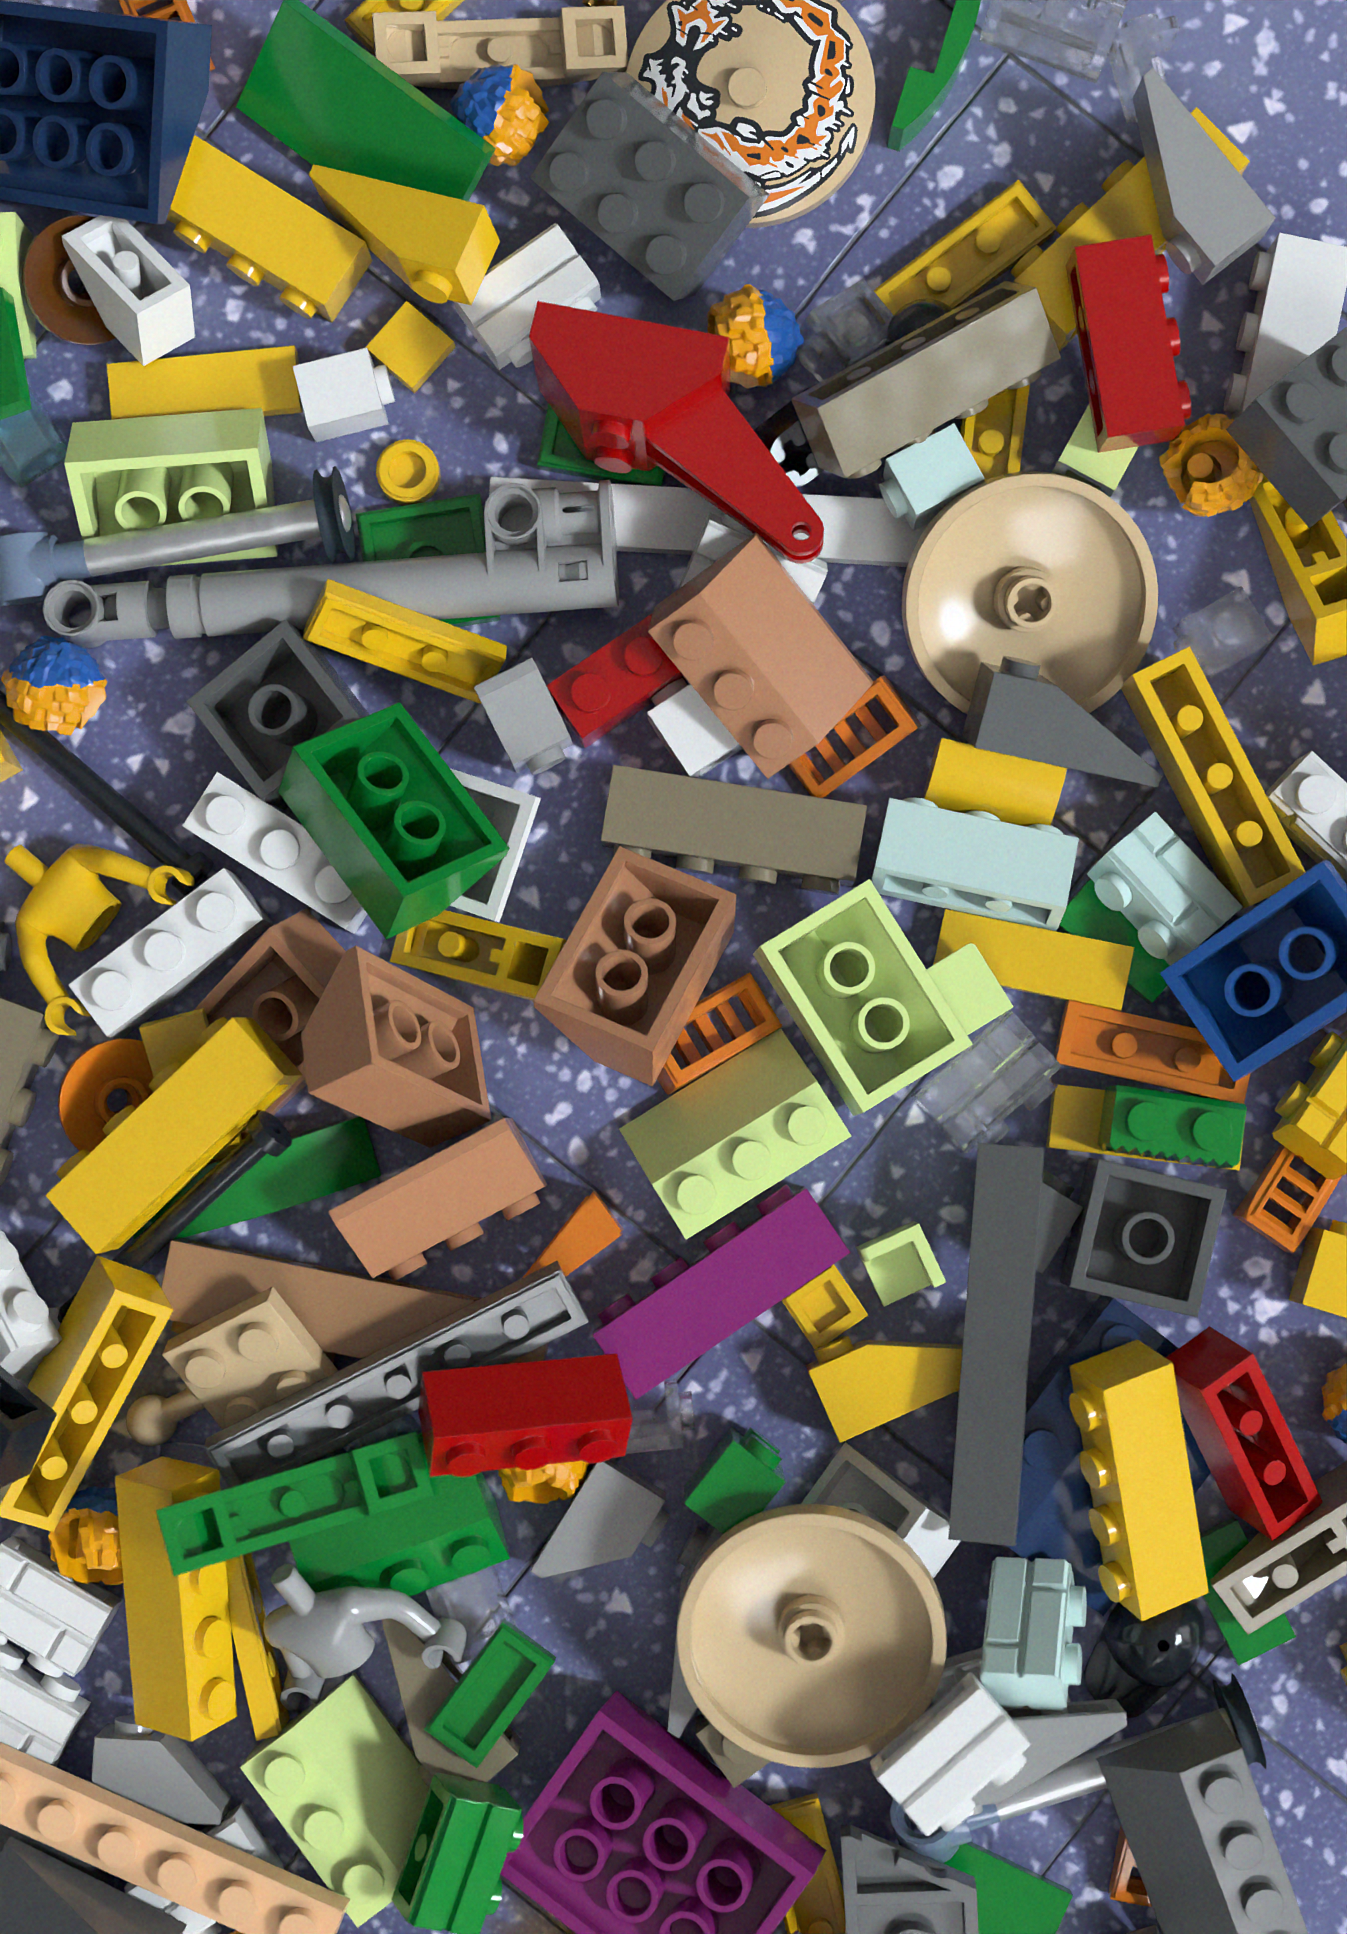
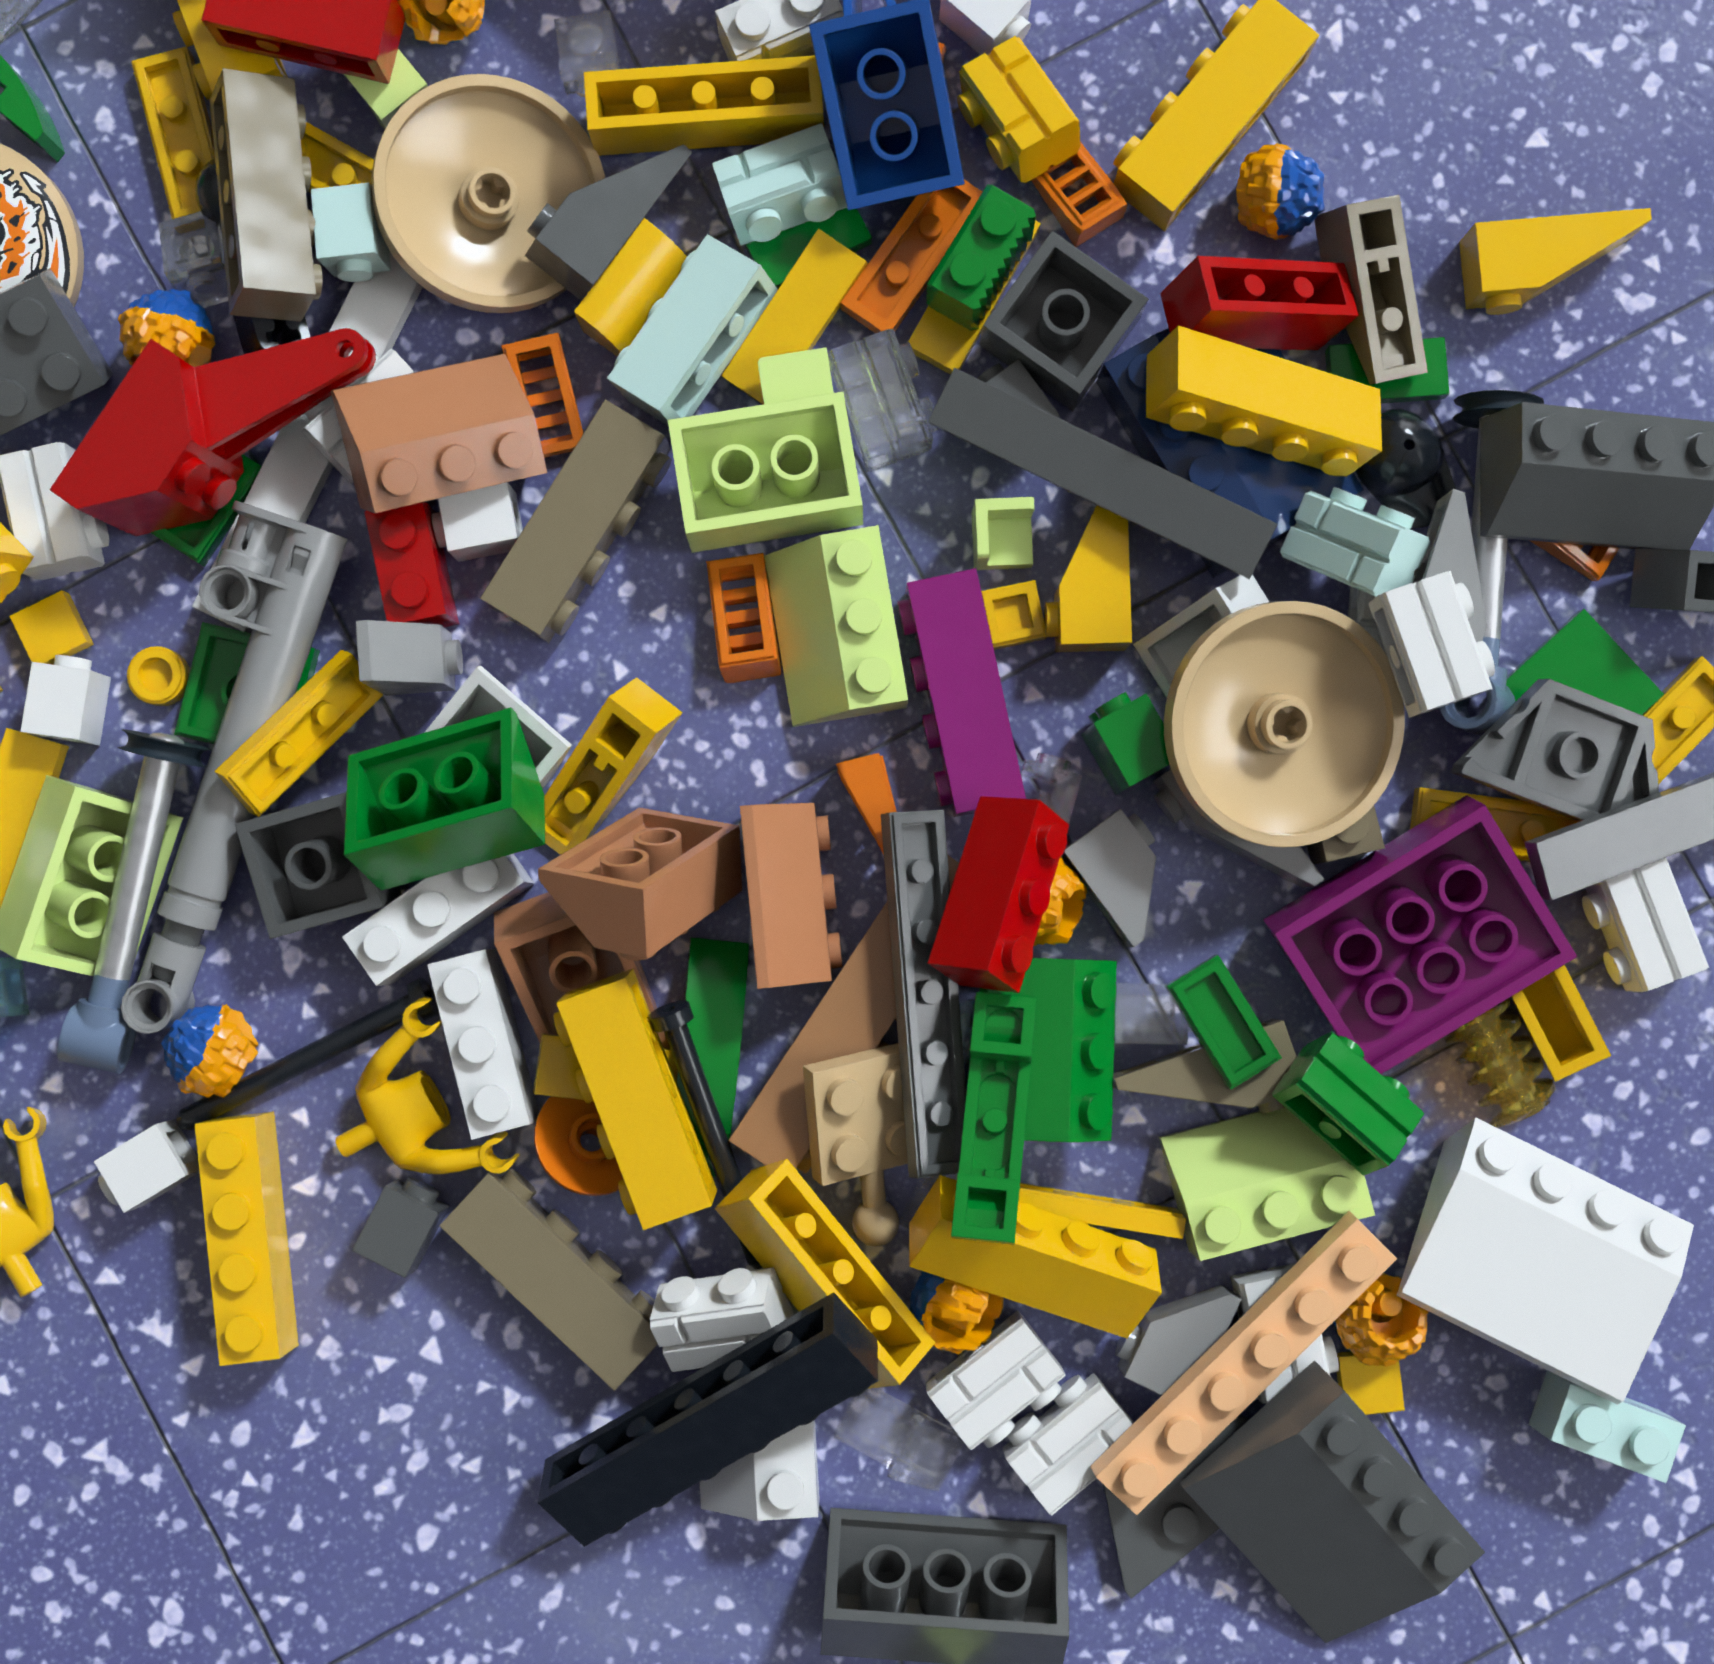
camera: 70 degrees left, 0 degrees up
(326, 1634) = (1120, 1135): light grey piece -> none
(637, 963) = (657, 645): nougat slope -> none

